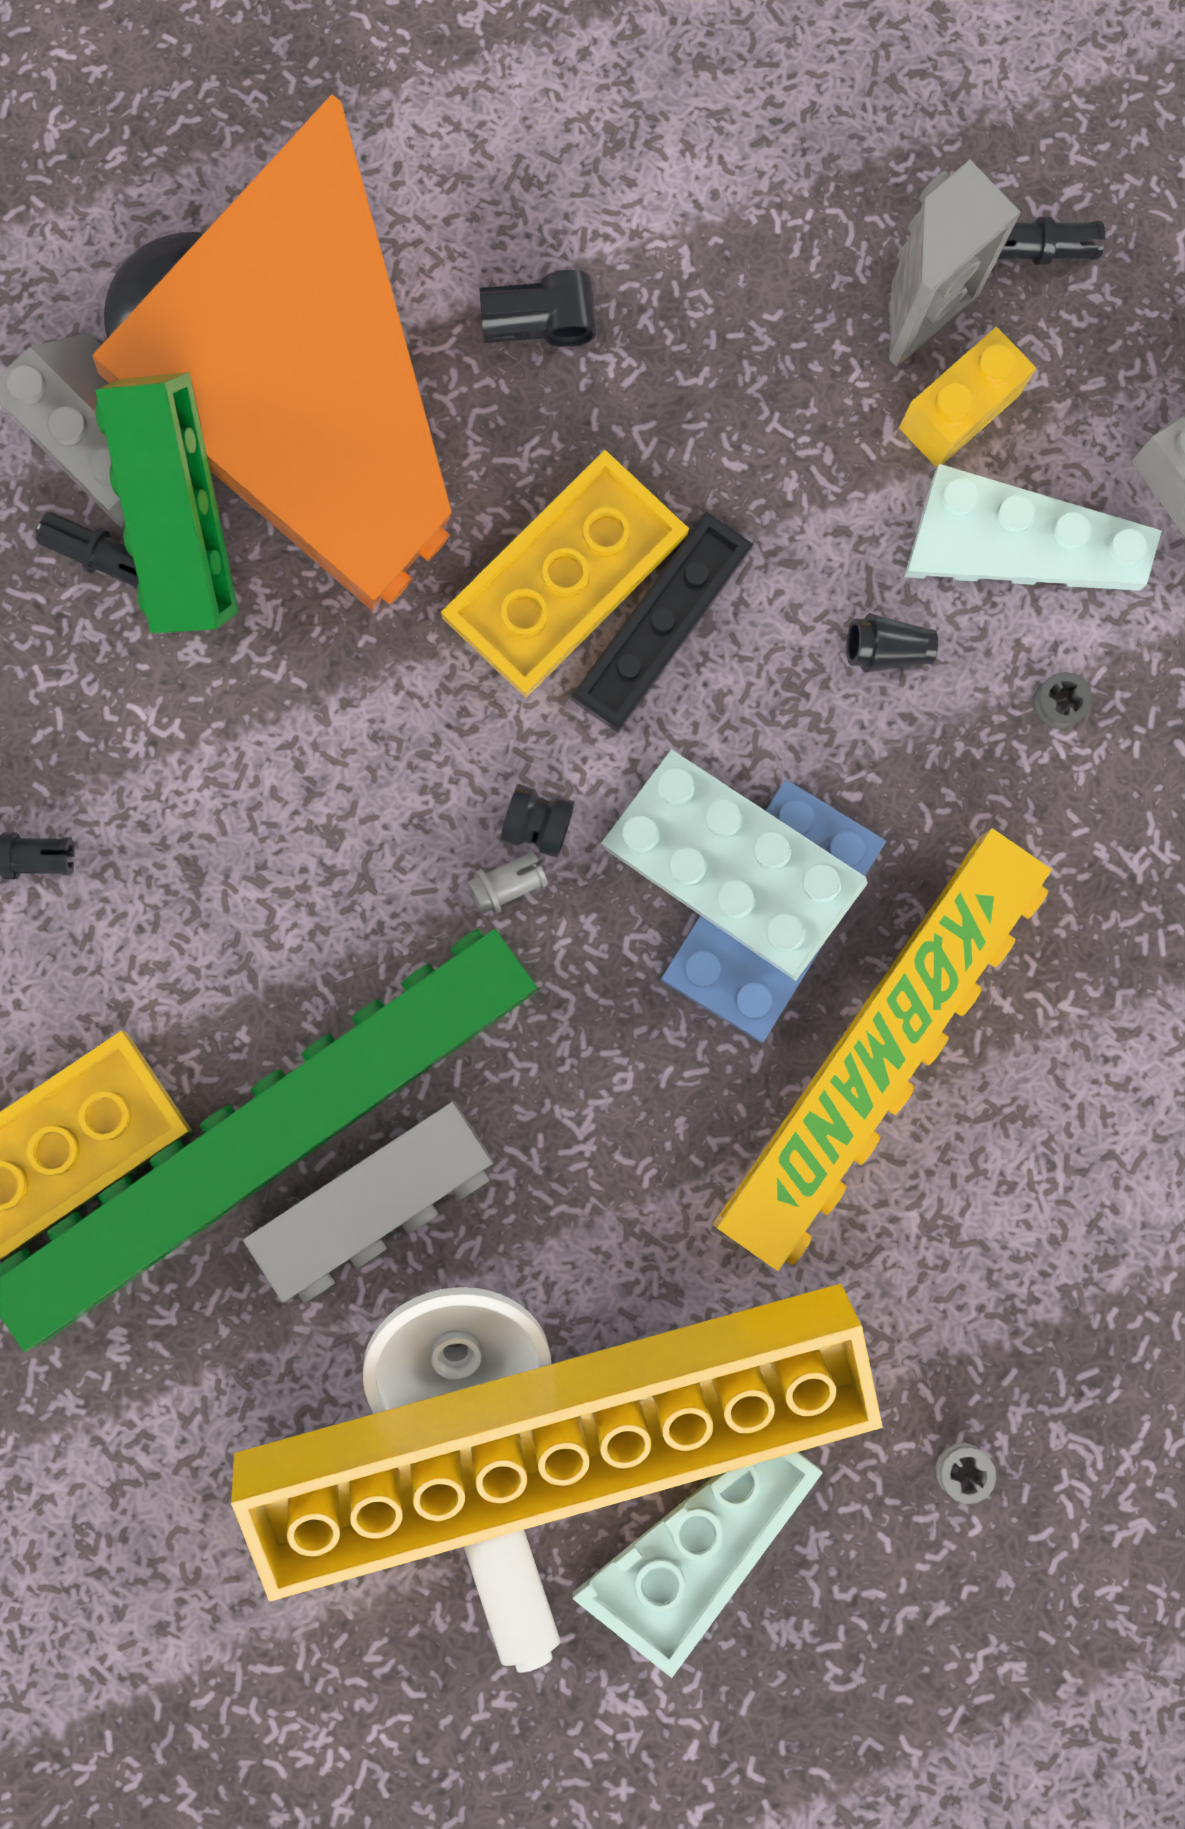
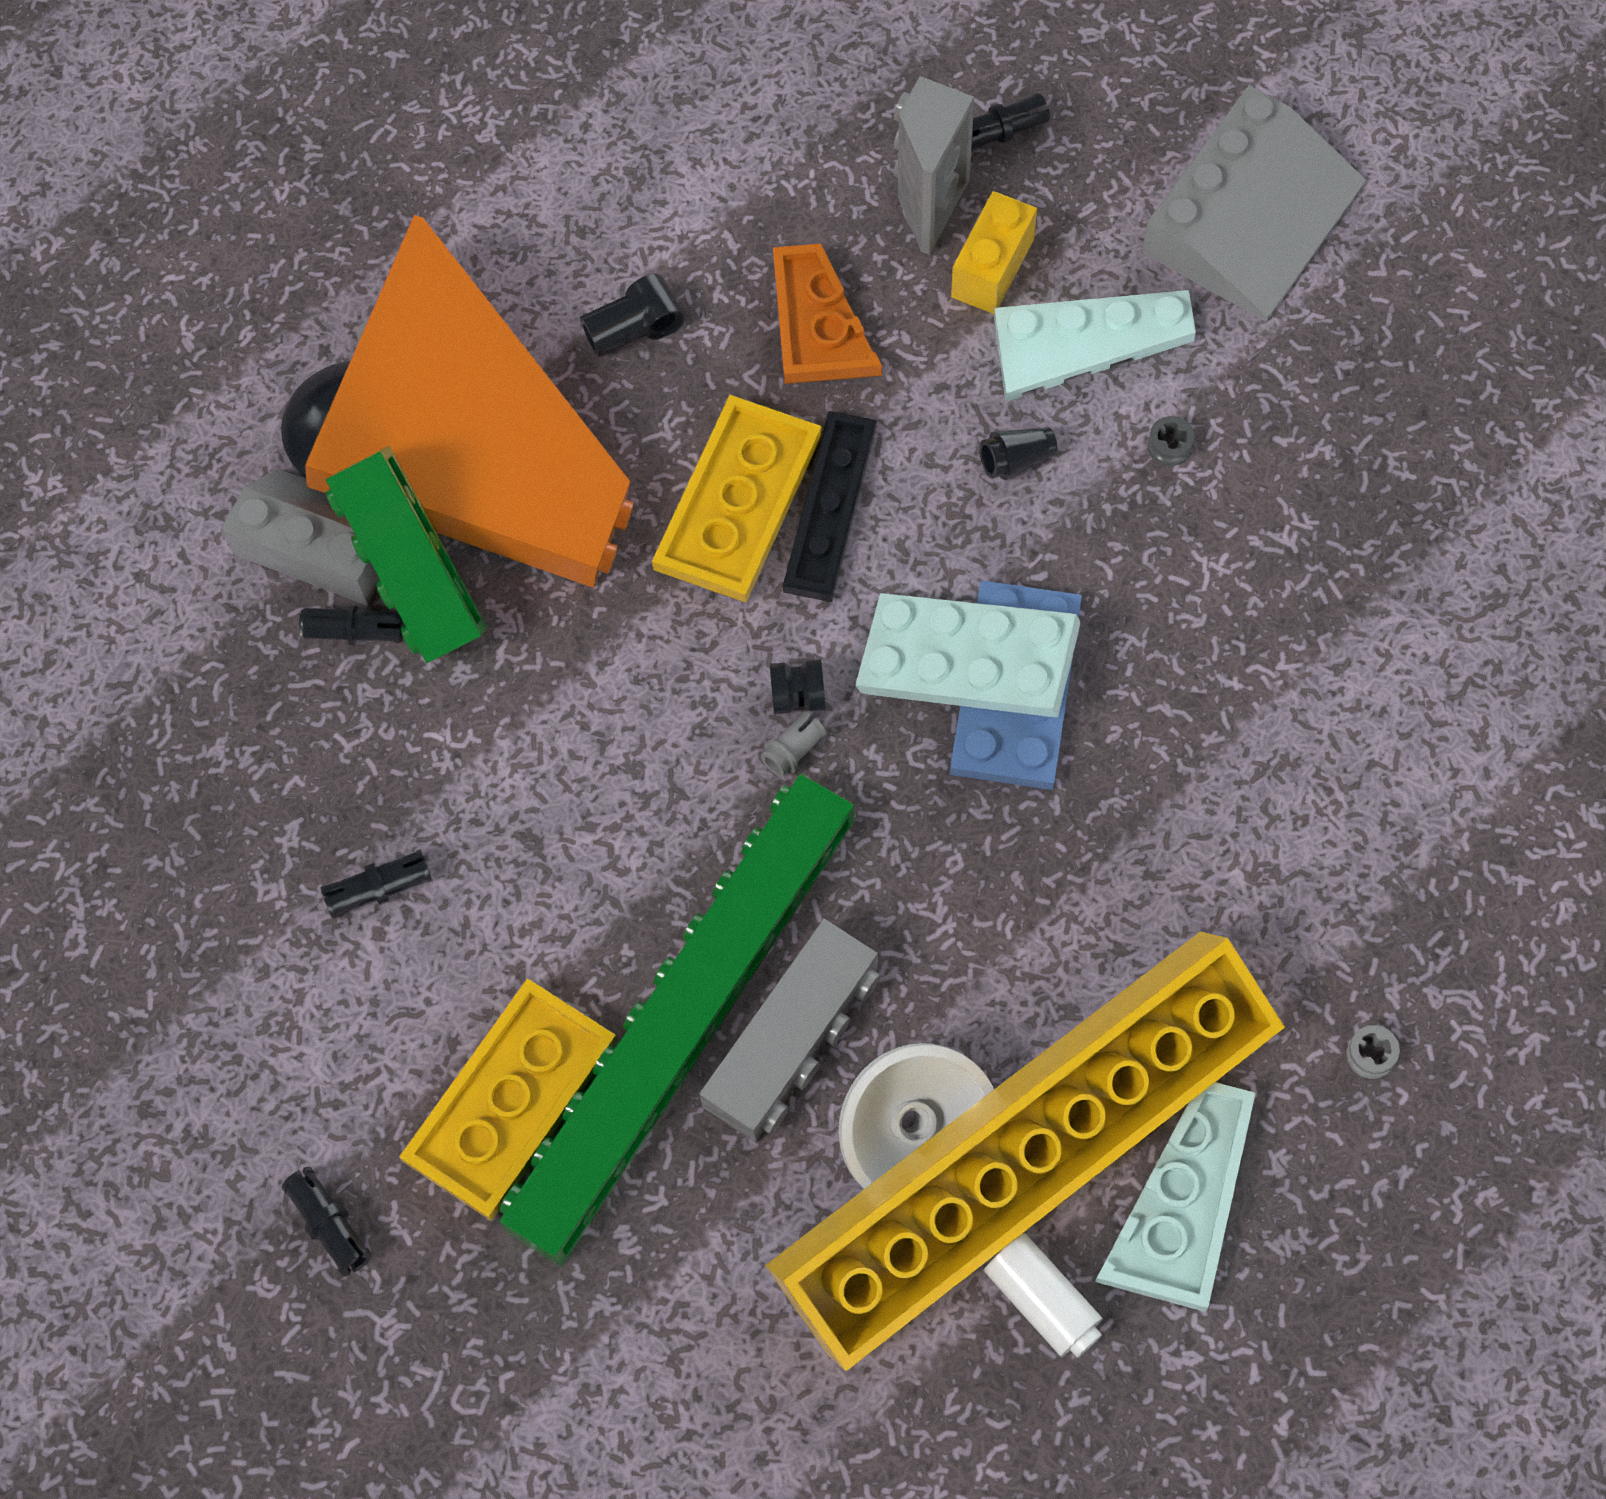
camera: 10 degrees left, 15 degrees down
(737, 400) = (816, 322): none -> orange wing
(882, 1050) = (1149, 754): yellow brick -> none

